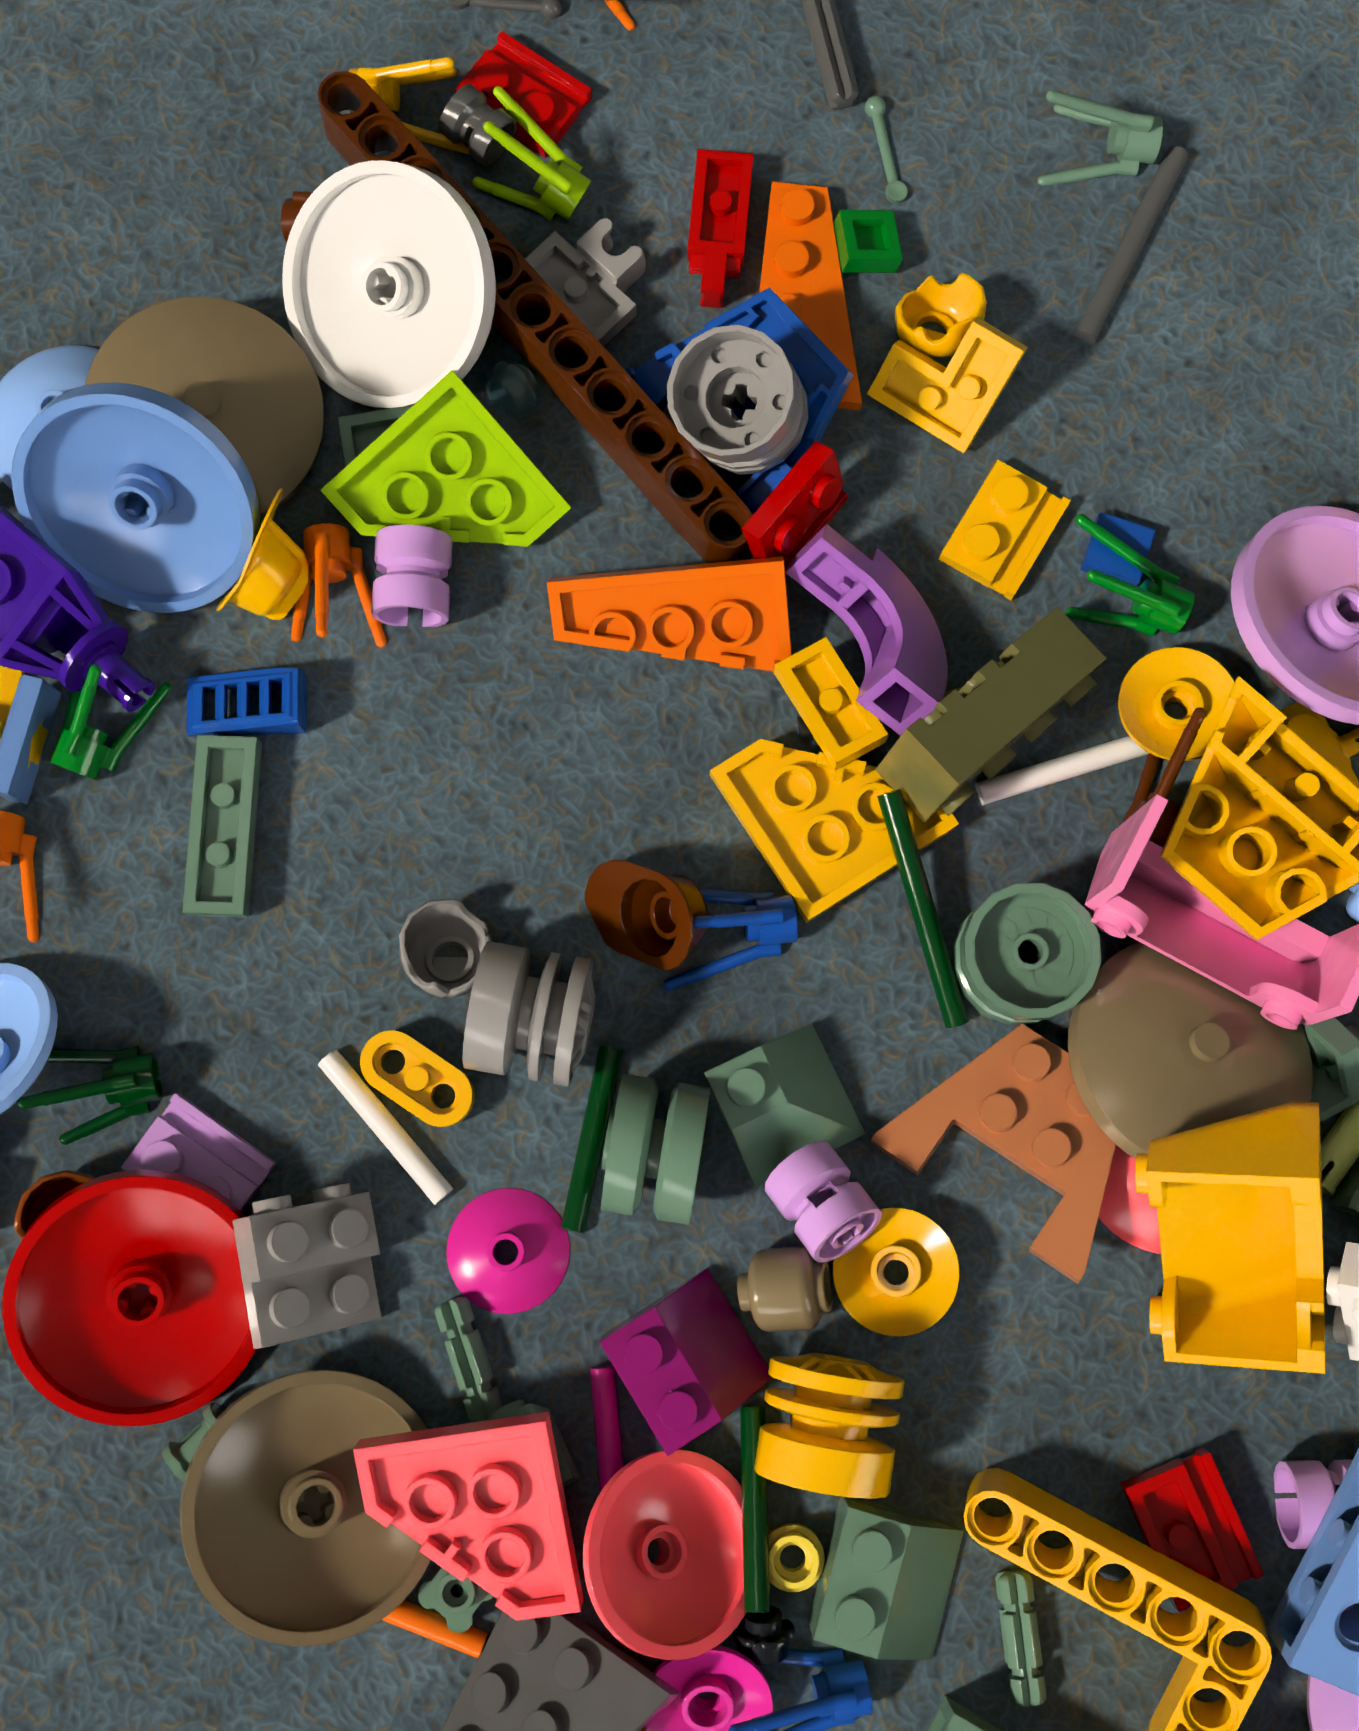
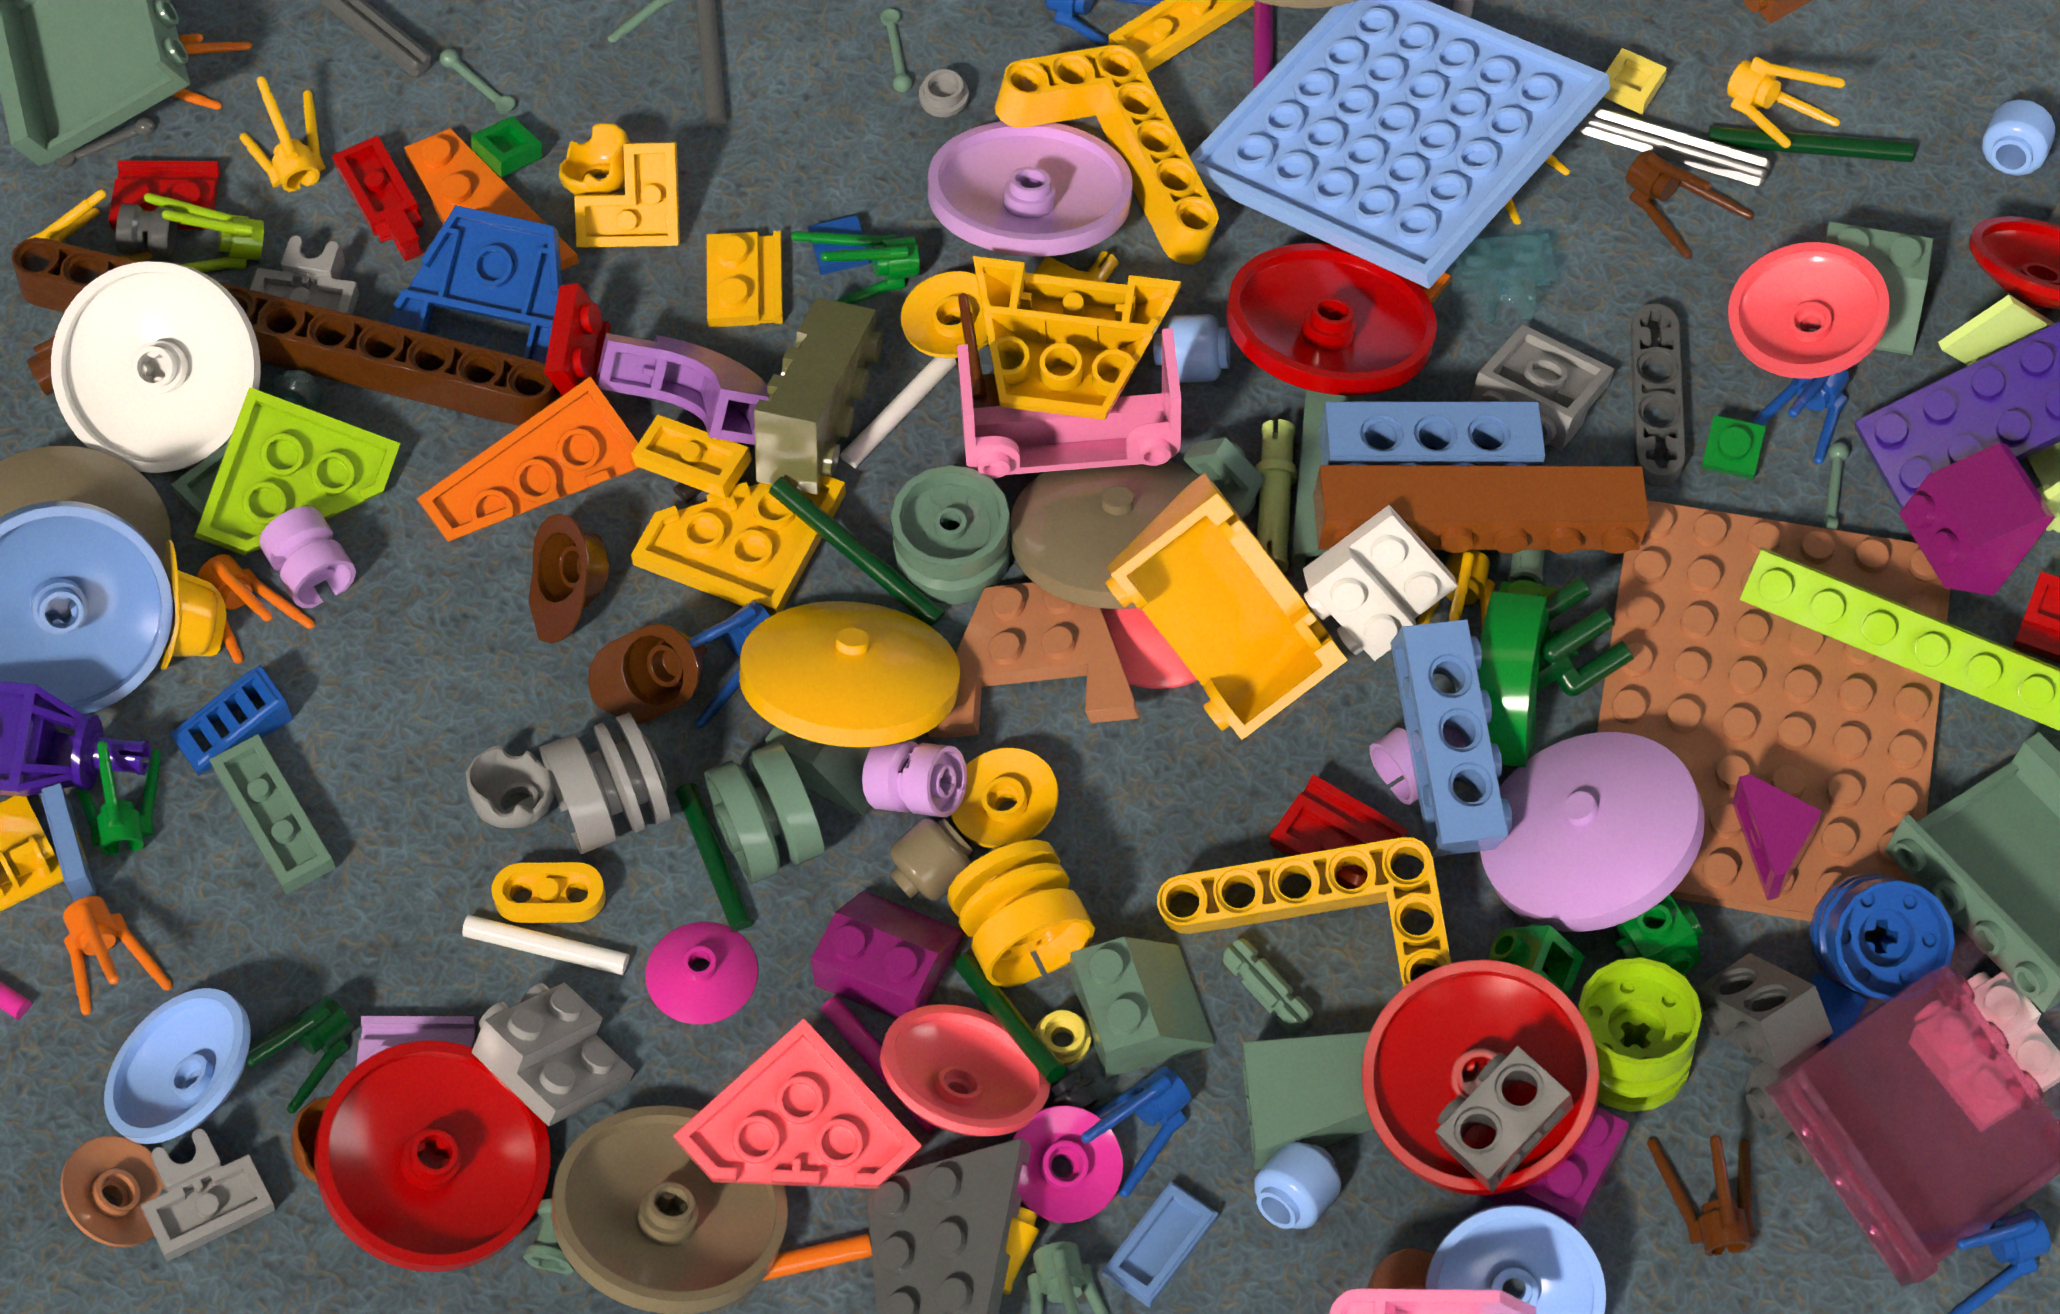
camera: 30 degrees left, 20 degrees down
(456, 1610) = (829, 1229): sand green plate -> none
(468, 1358) = (710, 1050): sand green axle -> none
(635, 753) = (562, 561): none -> reddish brown piece
(659, 132) = (292, 160): none -> yellow plant
(719, 374) = (470, 263): light grey wheel -> none
(828, 1052) = (849, 674): none -> yellow dish
(1324, 325) = (890, 18): none -> sand green hinge
(1324, 445) = (943, 93): none -> light grey plate

